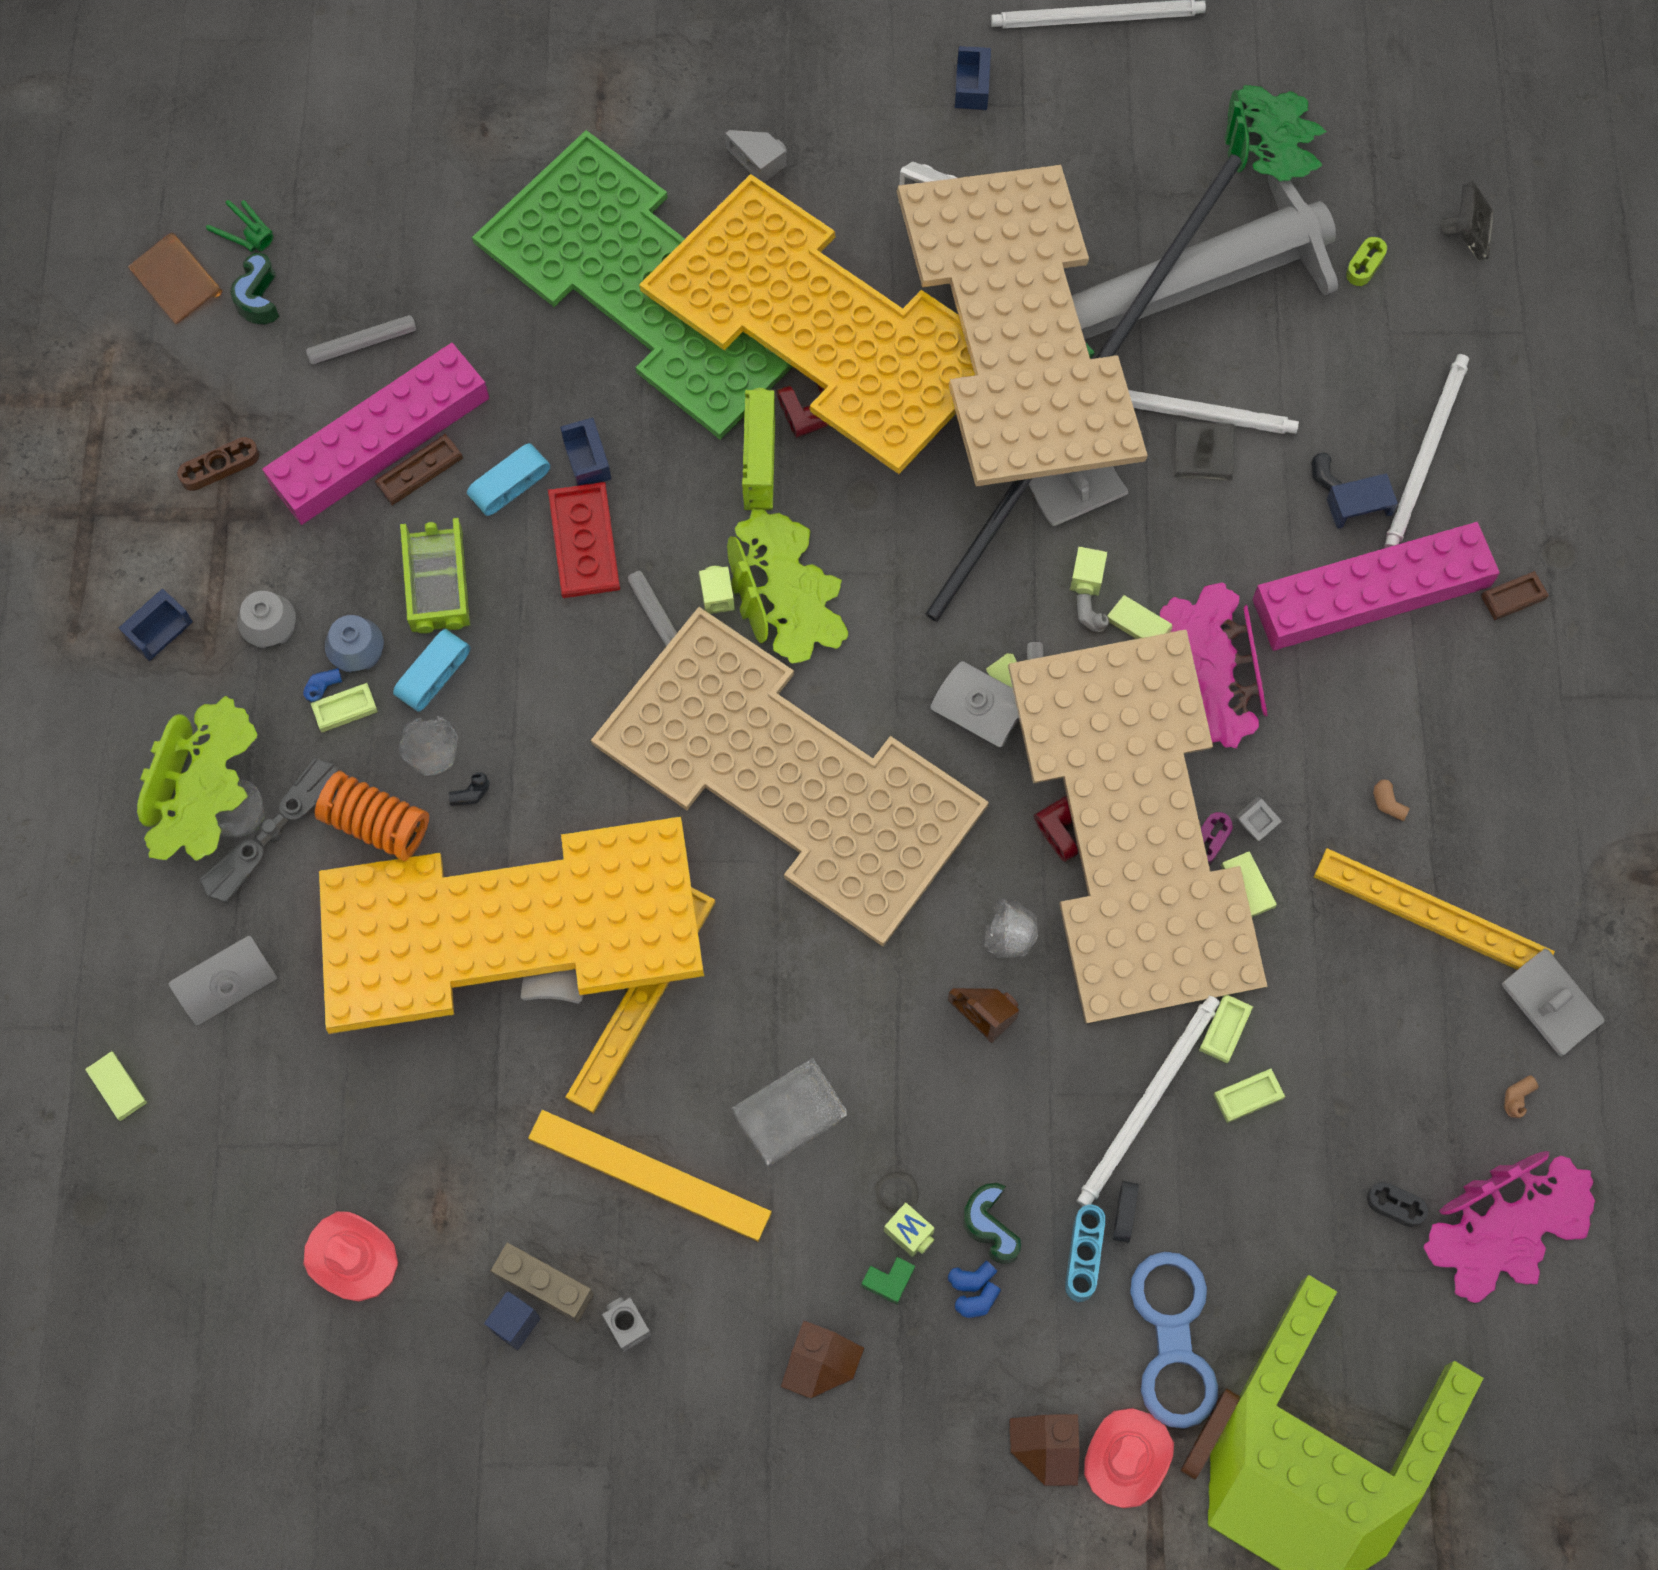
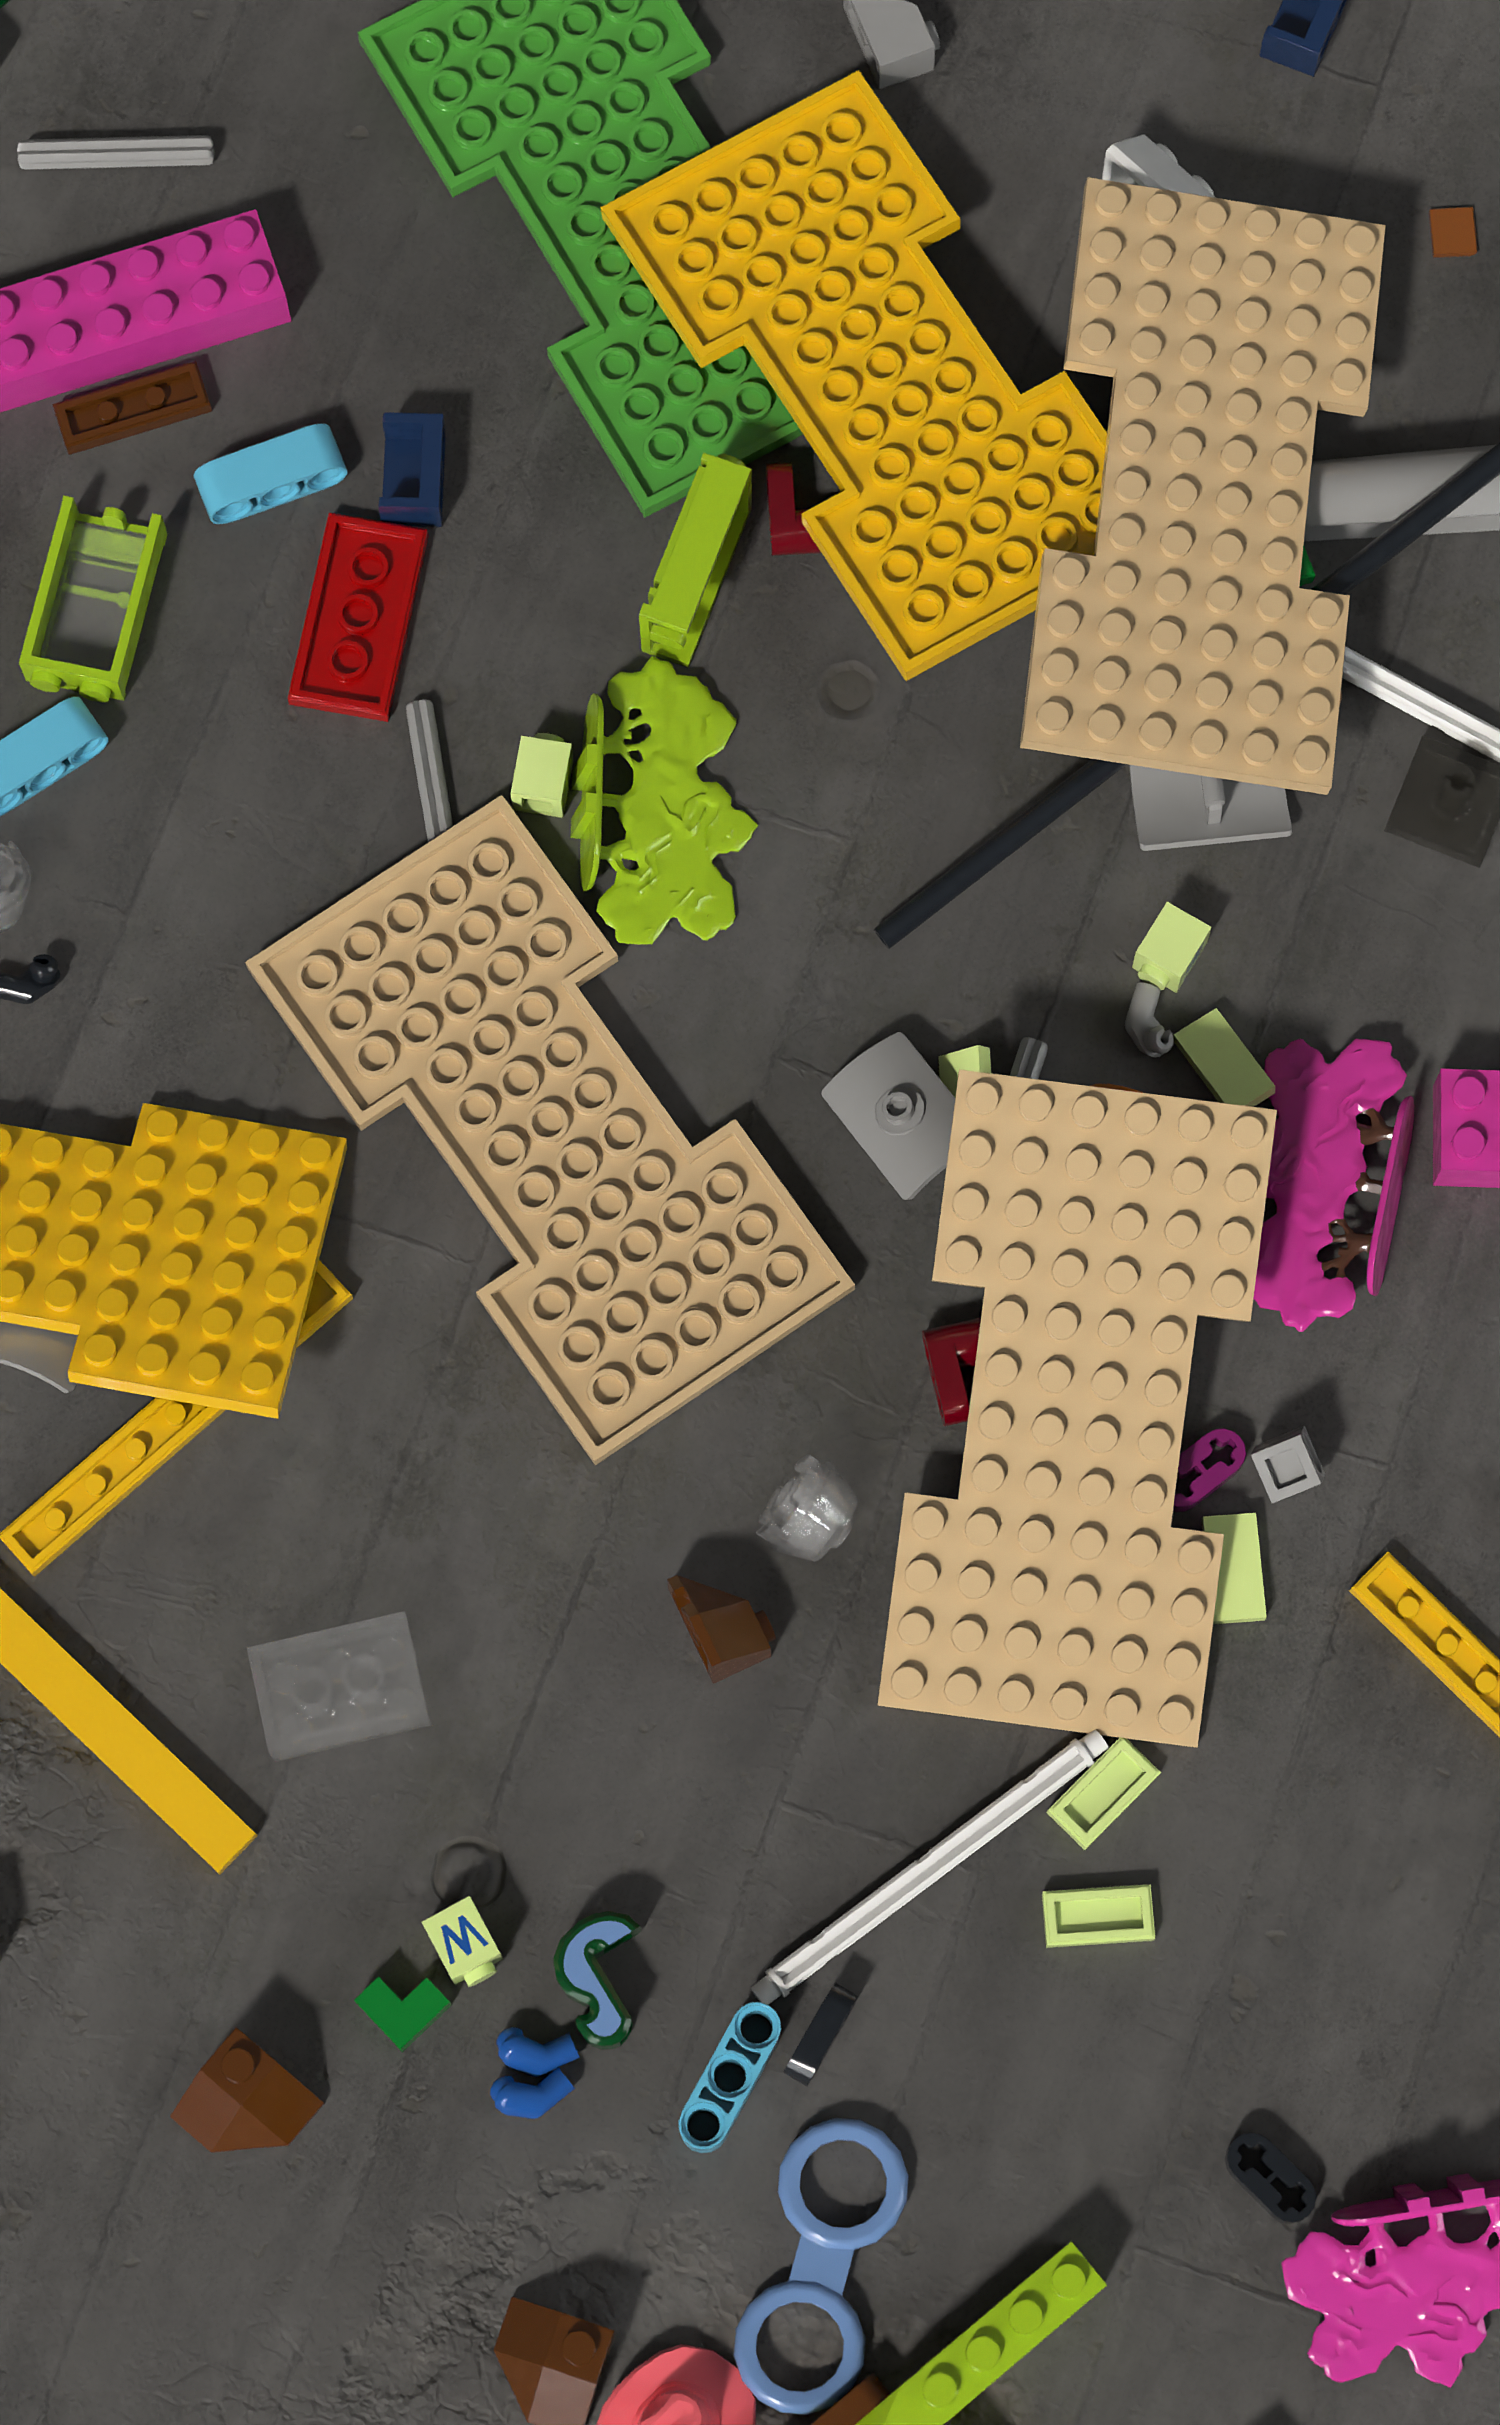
camera: 20 degrees right, 5 degrees up
(1089, 165) = (1452, 232): none -> dark orange piece

